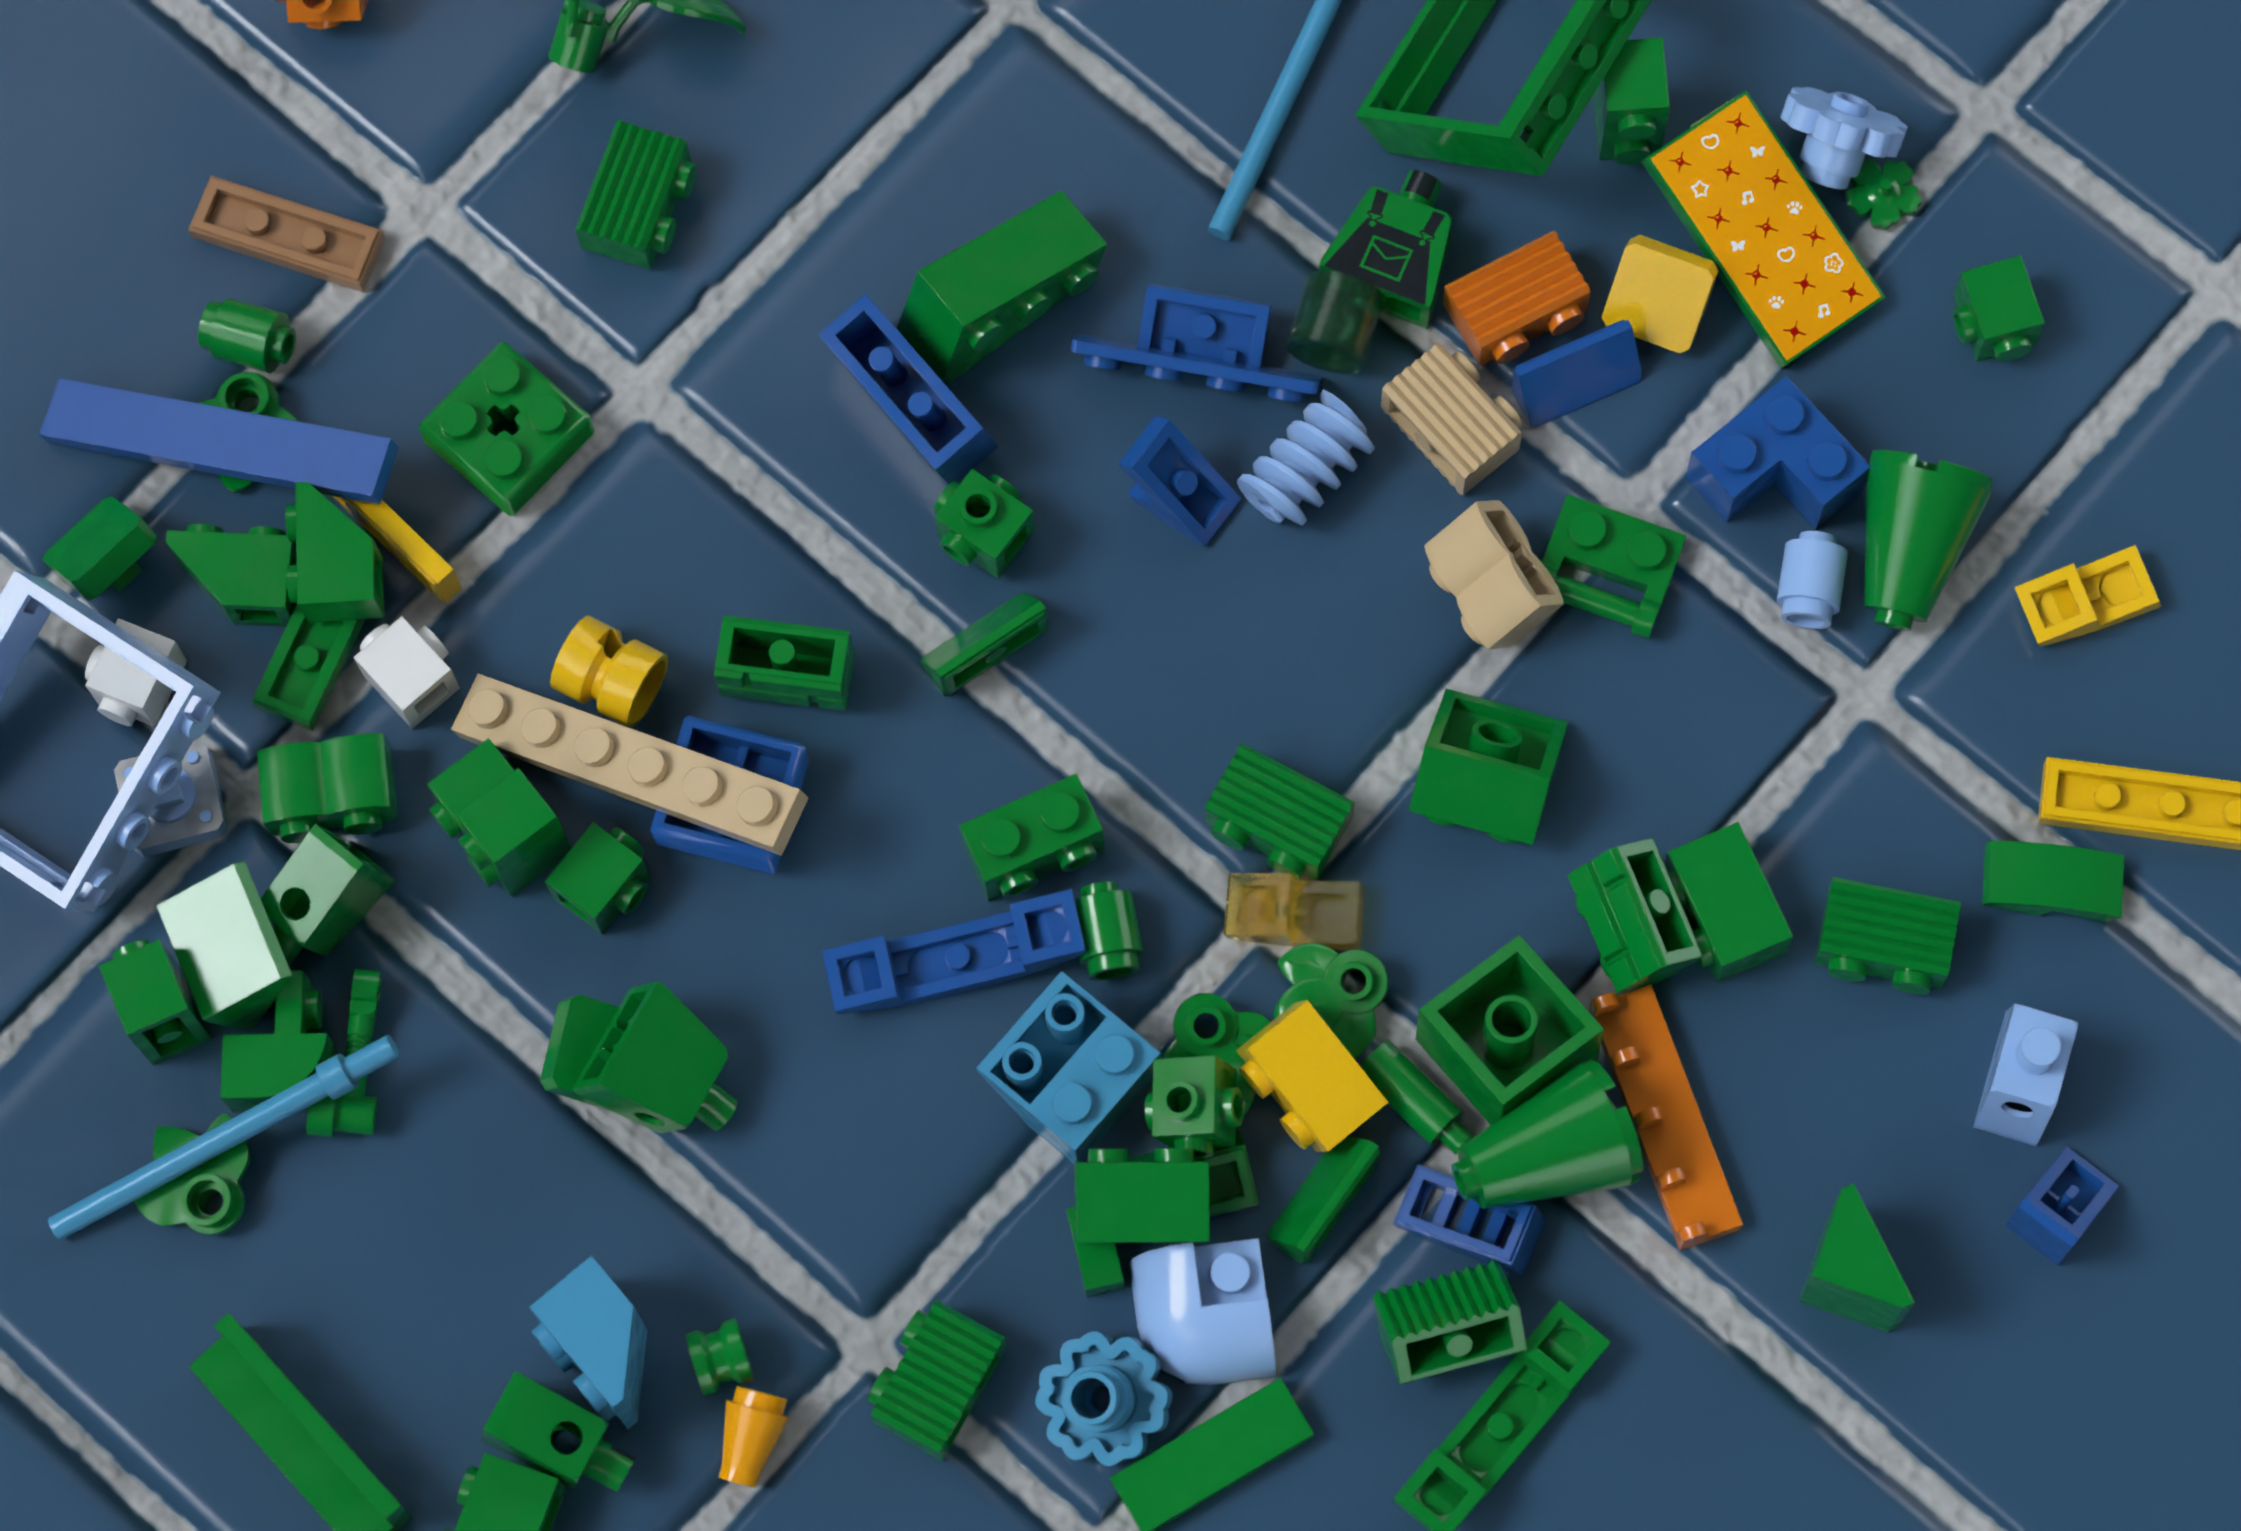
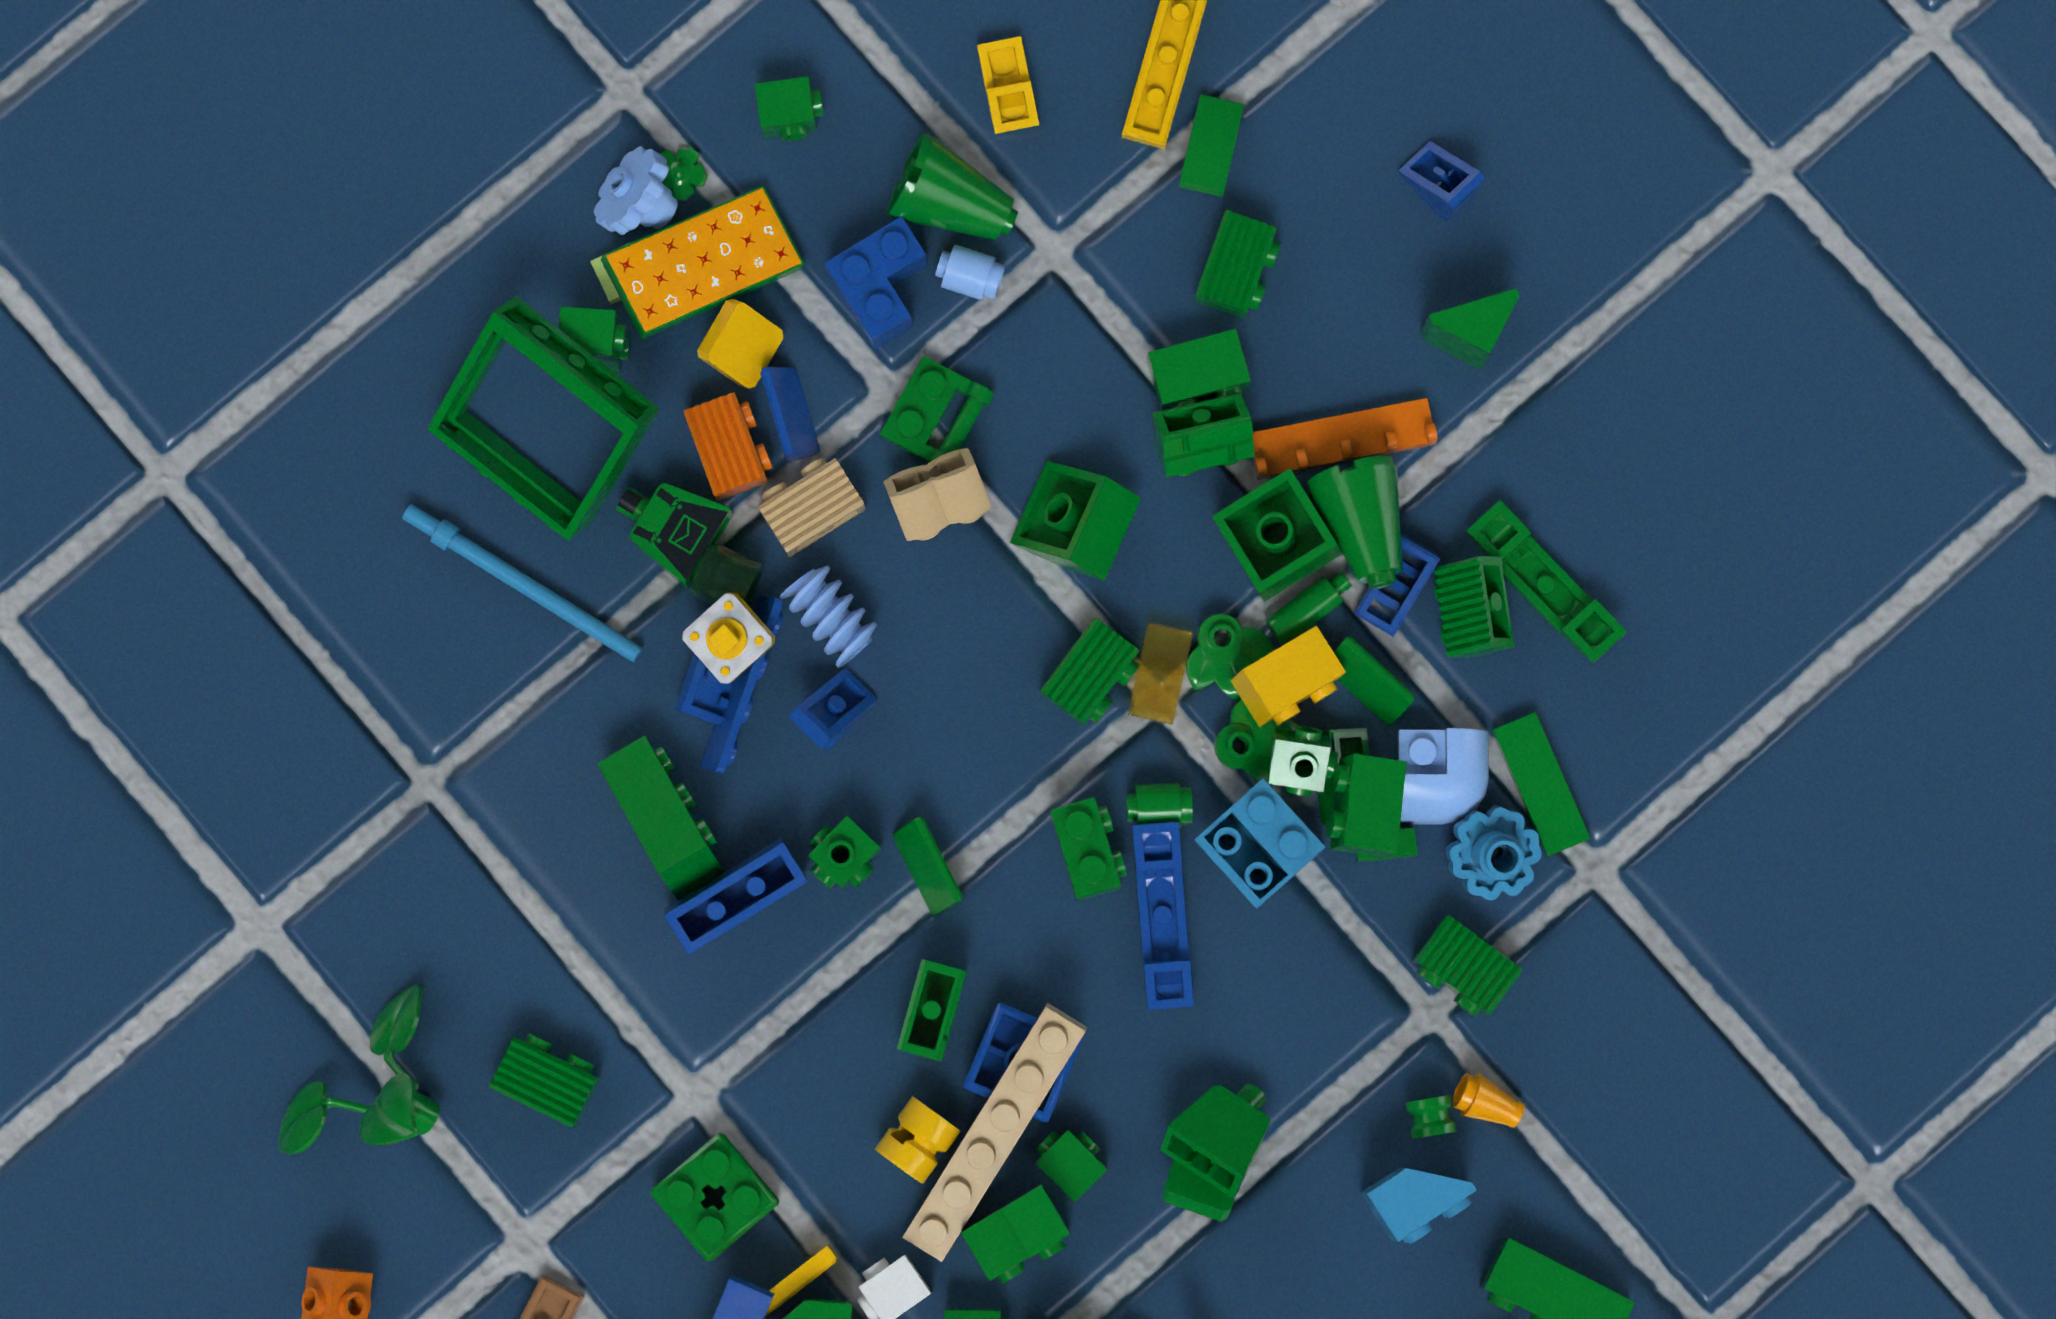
camera: 85 degrees left, 10 degrees up
(528, 1419) = (1464, 1253): green torso -> none
(1252, 325) = (728, 637): none -> flat silver piece
(2025, 1070) = (1348, 186): light blue torso -> none

